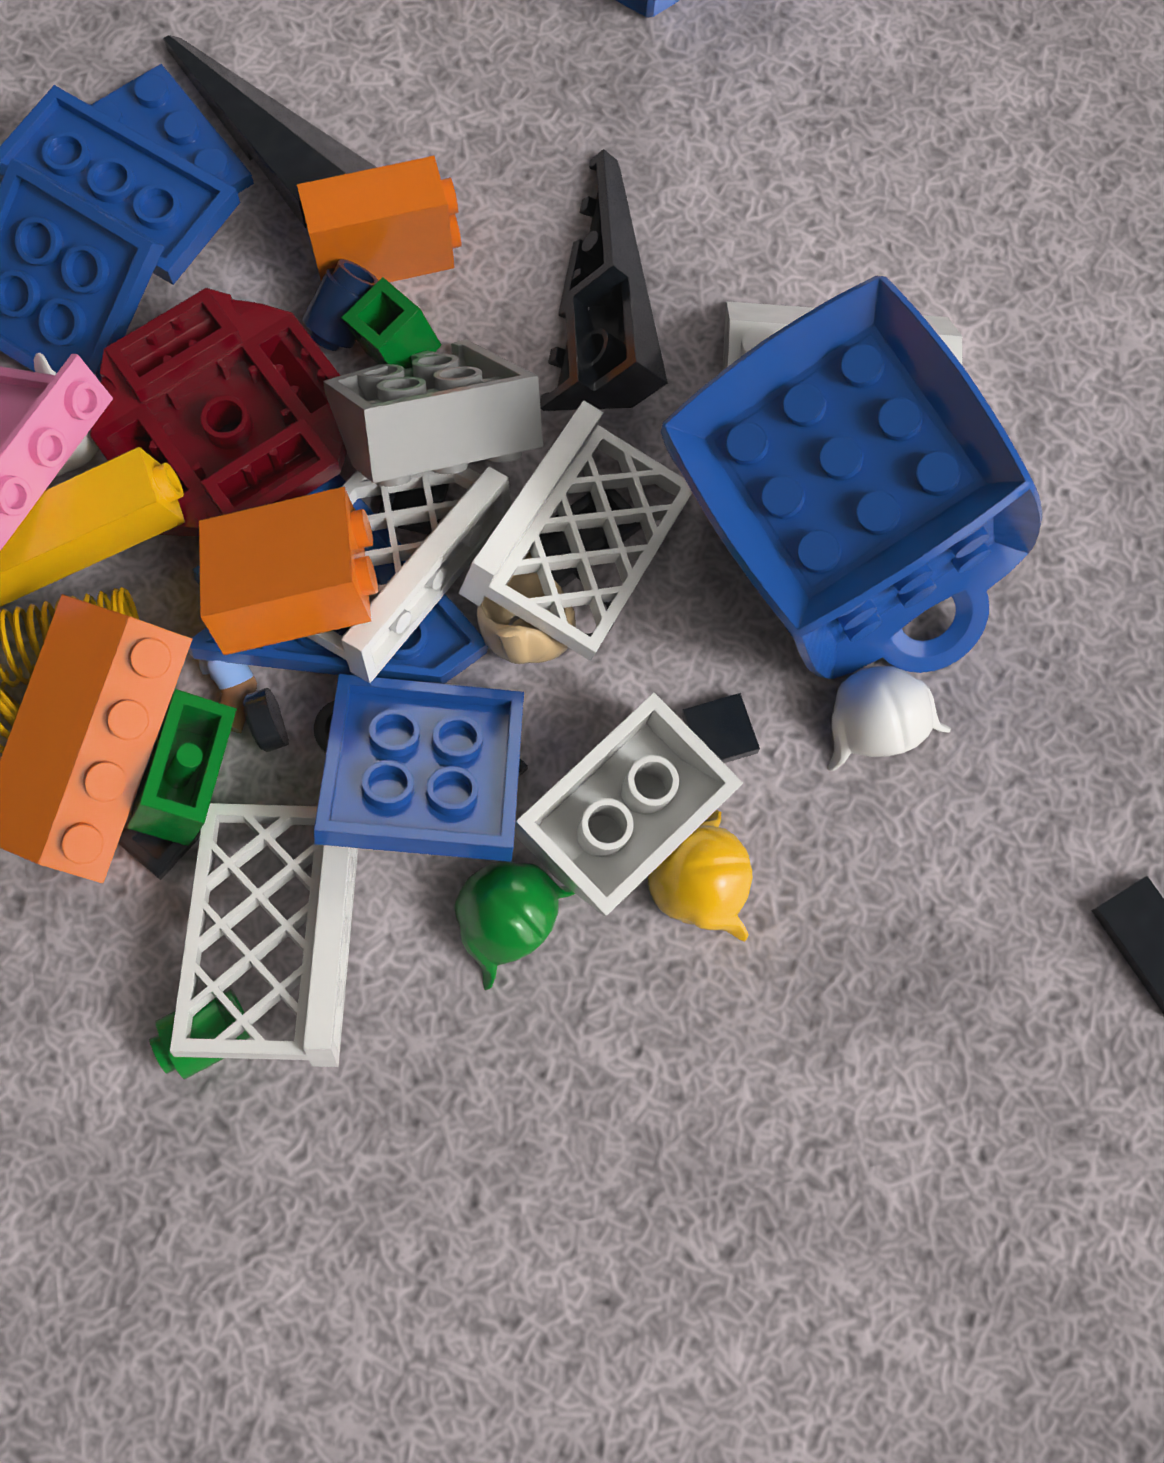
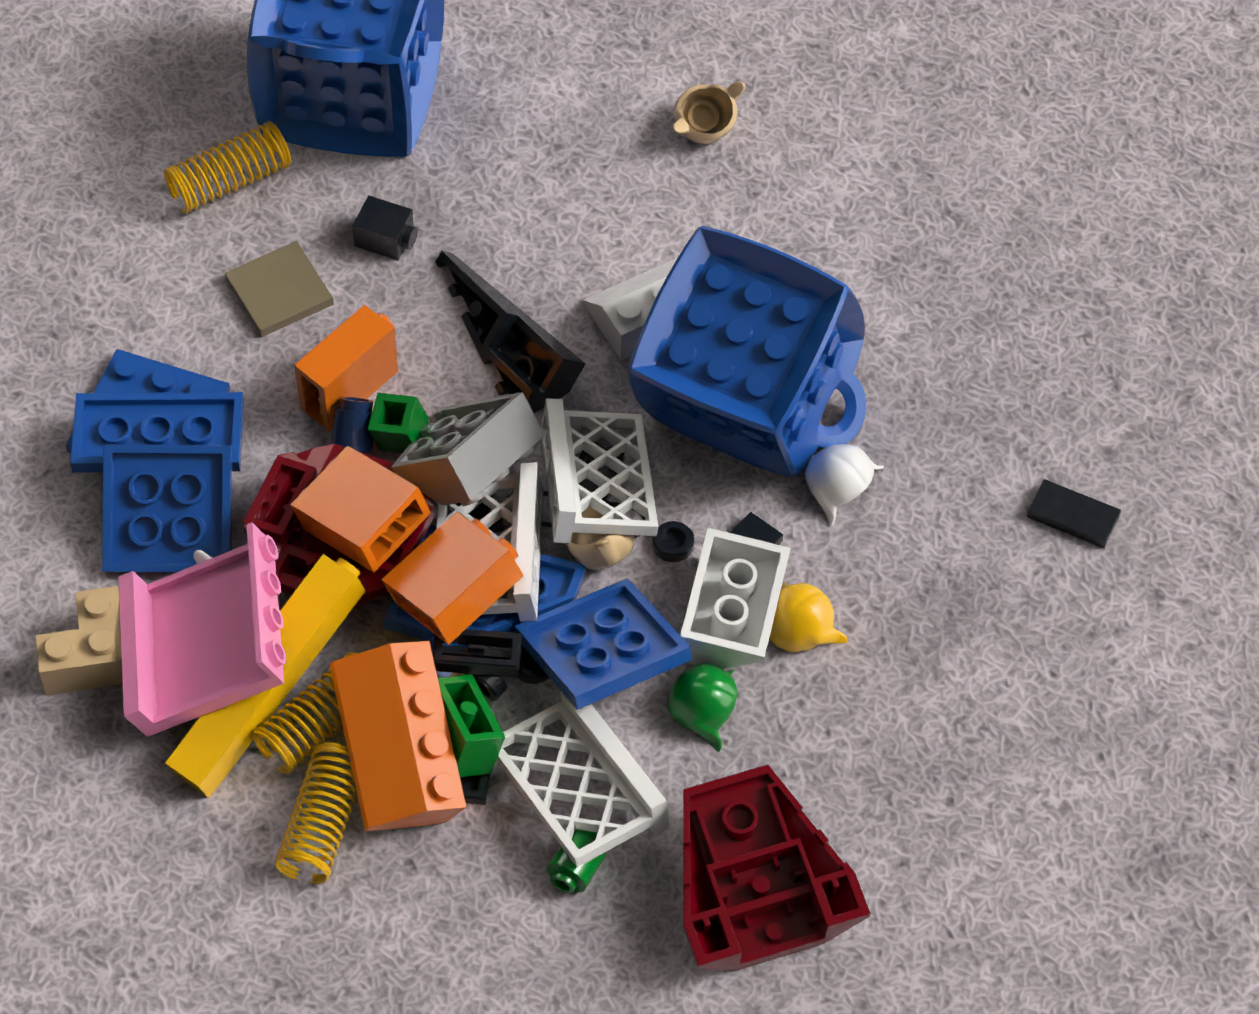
camera: 30 degrees left, 15 degrees down
(237, 414) = (360, 508): none -> orange brick
(271, 134) = (250, 358): black wedge -> none
(302, 714) = (475, 657): none -> black tile
(385, 1222) = (759, 874): none -> dark red wedge
(391, 94) = (279, 288): none -> dark tan tile
(554, 84) = (384, 228): none -> black brick
(620, 673) = (673, 541): none -> black tile
(1032, 144) = (704, 108): none -> tan hair

